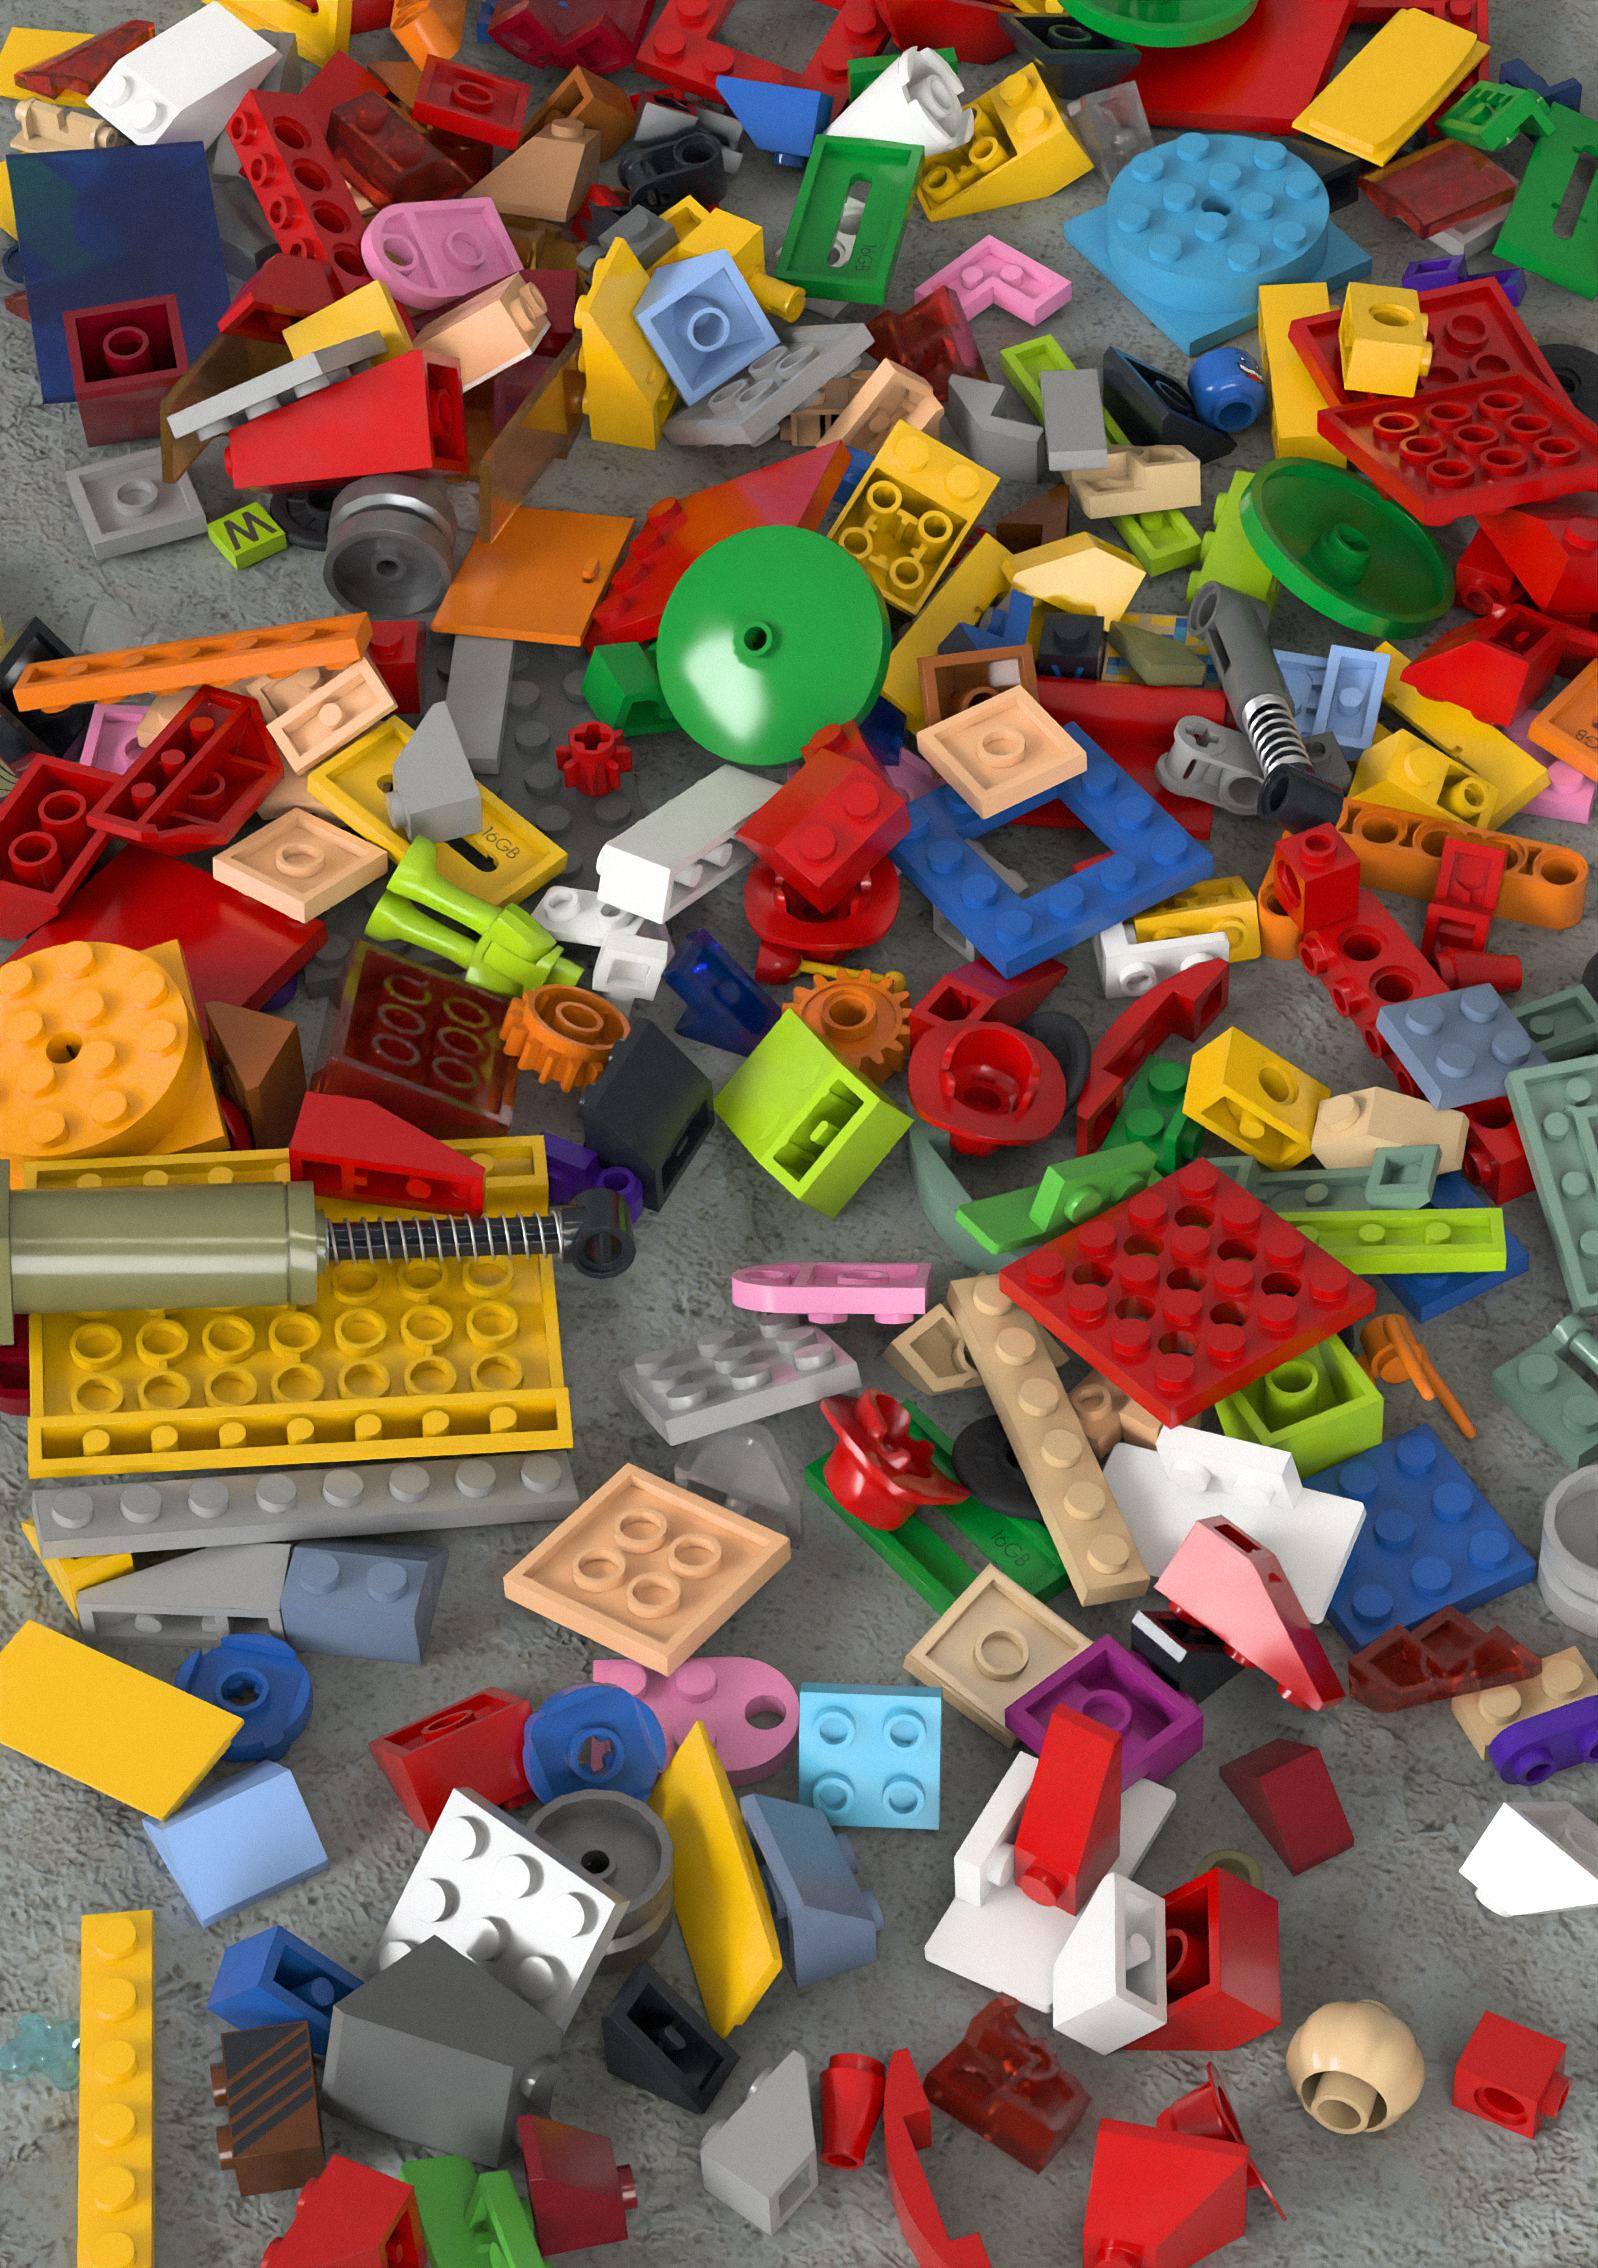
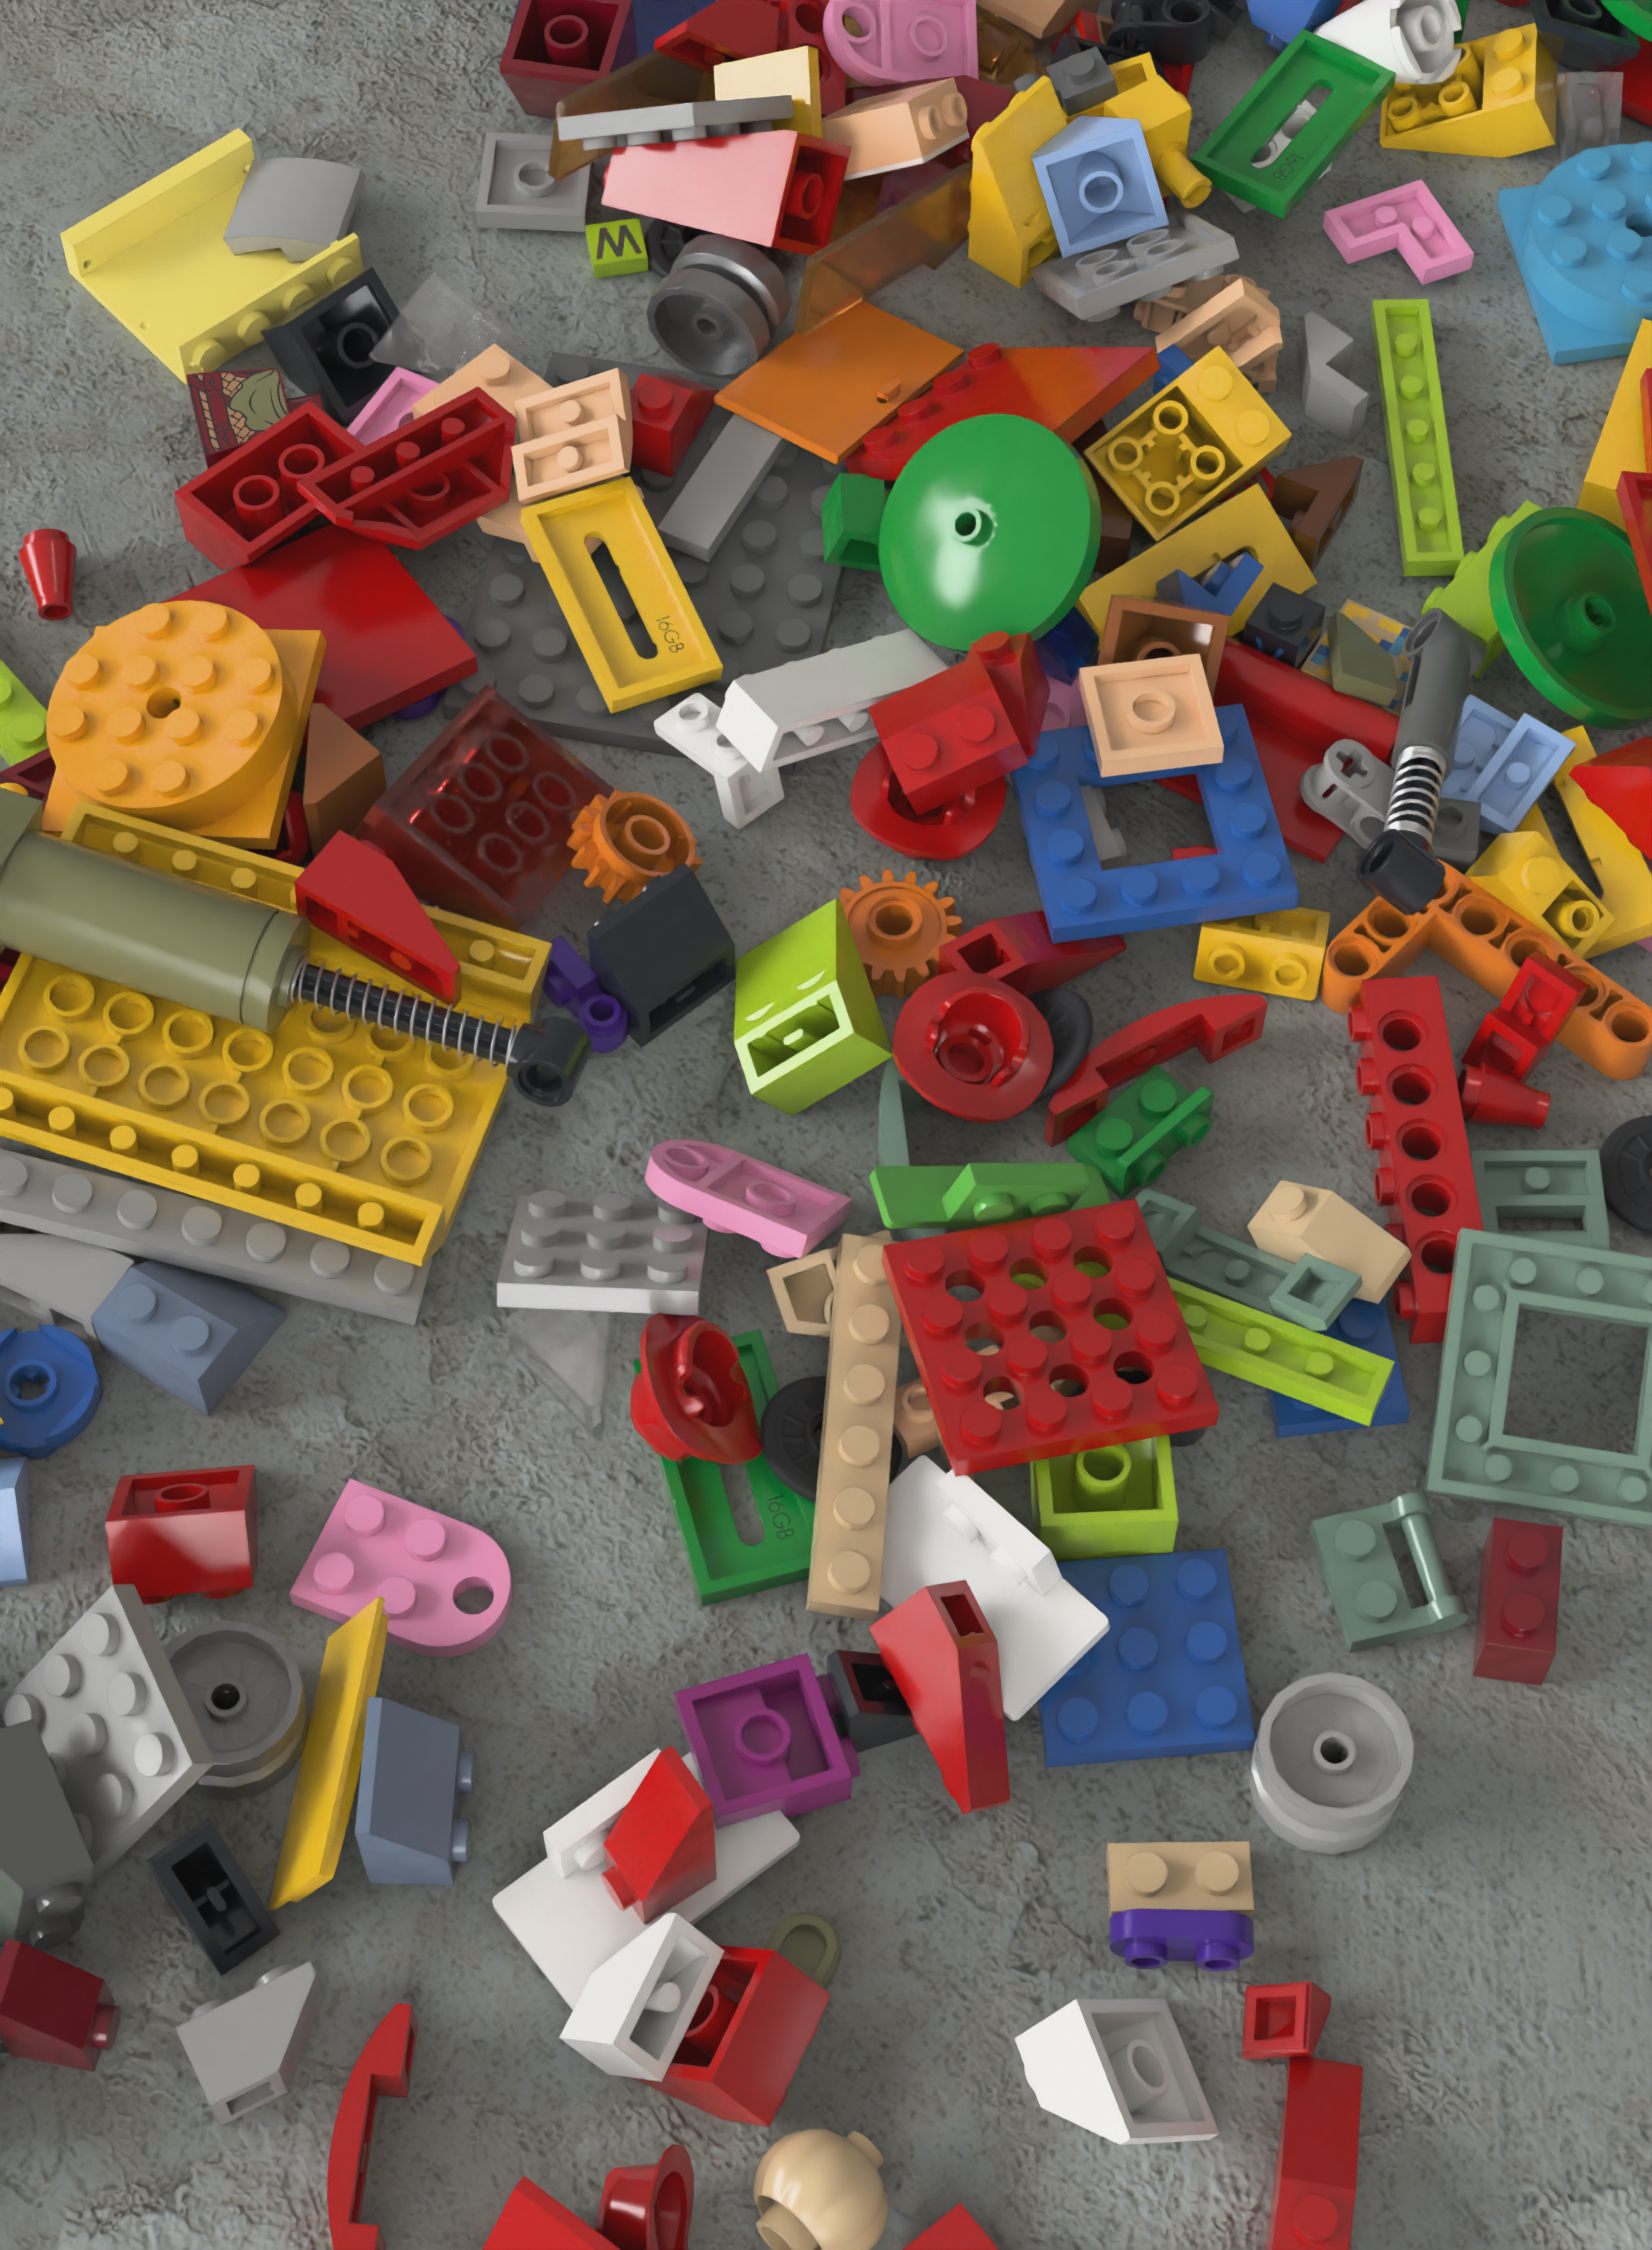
camera: 20 degrees right, 10 degrees up
(202, 660) = (475, 364): orange plate -> none
(300, 865) = (480, 592): light nougat plate -> none
(434, 783) = (624, 558): light grey slope -> none
(513, 947) = (628, 742): lime piece -> none
(594, 758) = (792, 581): red gear -> none
(597, 1710) = (291, 1544): blue plate -> none
(629, 969) = (716, 803): white plate -> none
(647, 1569) = (436, 1410): light nougat plate -> none
(722, 999) = (791, 856): clear blue slope -> none
(783, 964) = (865, 849): red hinge -> none
(850, 2107) = (341, 2034): red cone -> none
(871, 1754) = (531, 1687): medium azure plate -> none
(929, 341) = (1310, 271): clear red slope -> none
(993, 1650) = (708, 1619): tan tile -> none
(1009, 2087) = (500, 2071): clear red slope -> none
(1073, 420) = (1397, 396): light grey tile -> none
(1077, 576) = (1320, 556): yellow slope -> none
(1137, 481) = (1425, 474): tan slope -> none
(1137, 968) = (1196, 975): white bracket -> none
(1157, 408) = (1493, 417): black slope -> none
(1227, 389) = (1564, 412): blue head -> none
(1254, 1099) = (1219, 1154): yellow brick -> none
(1291, 1802) = (902, 1890): dark red slope -> none
(1316, 877) = (1384, 952): red brick -> none
(1397, 1357) = (1229, 1467): orange plant -> none
(1436, 1663) = (1107, 1808): clear red slope -> none
(1458, 1044) = (1437, 1177): sand blue plate -> none

